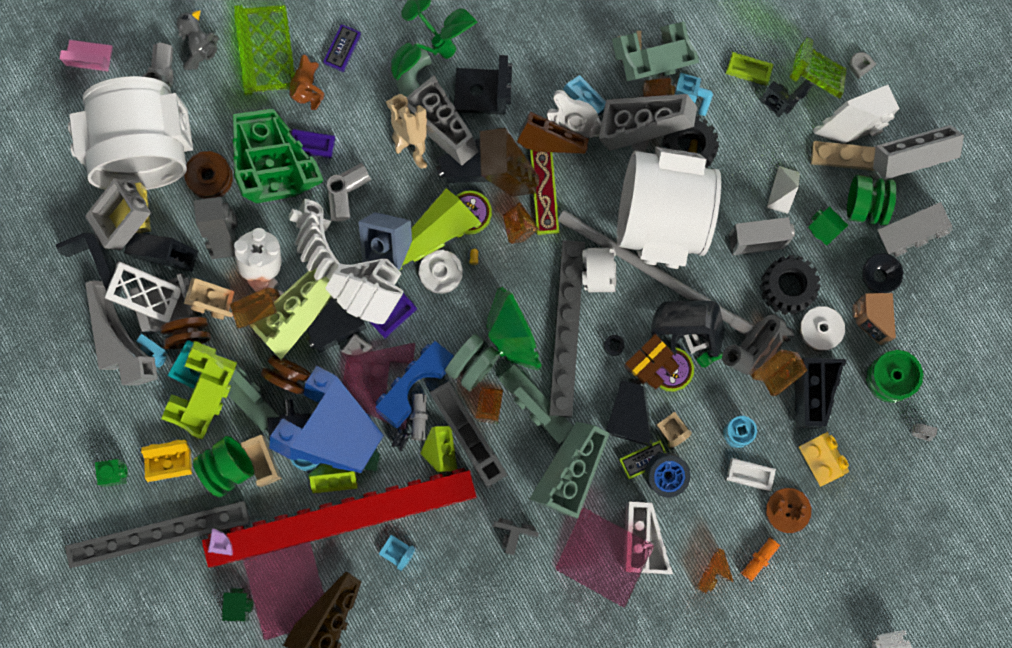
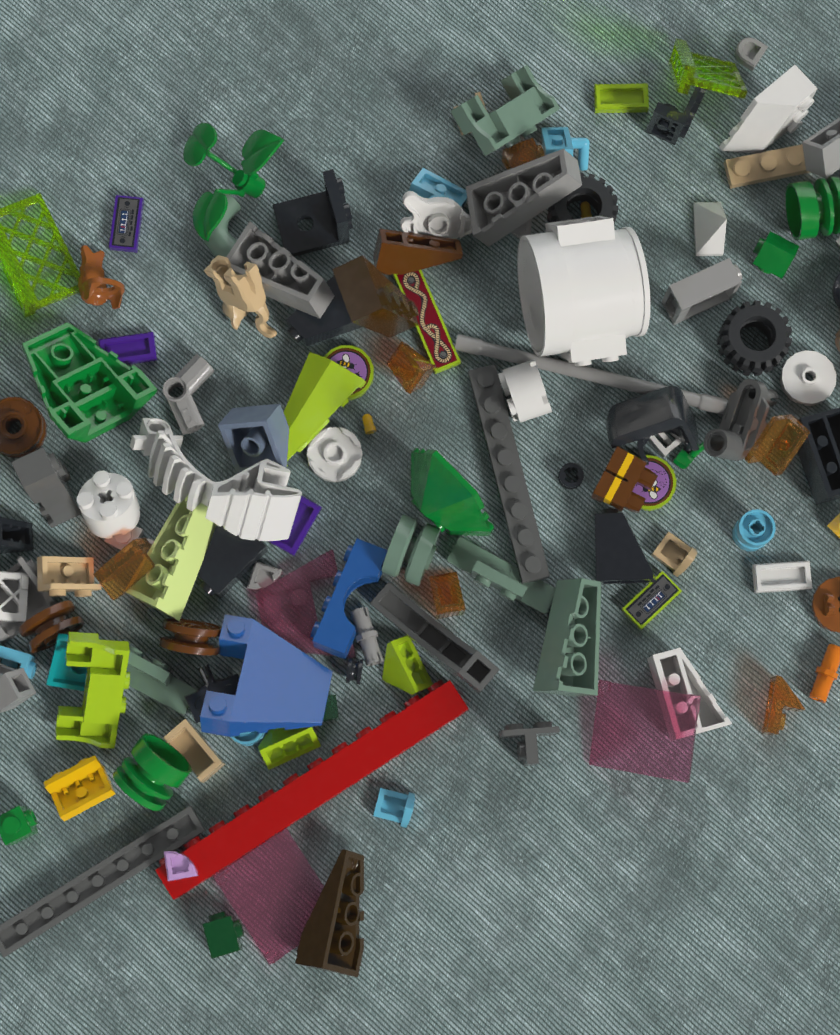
camera: 20 degrees left, 0 degrees up
(667, 486) = (692, 621): wheel -> none

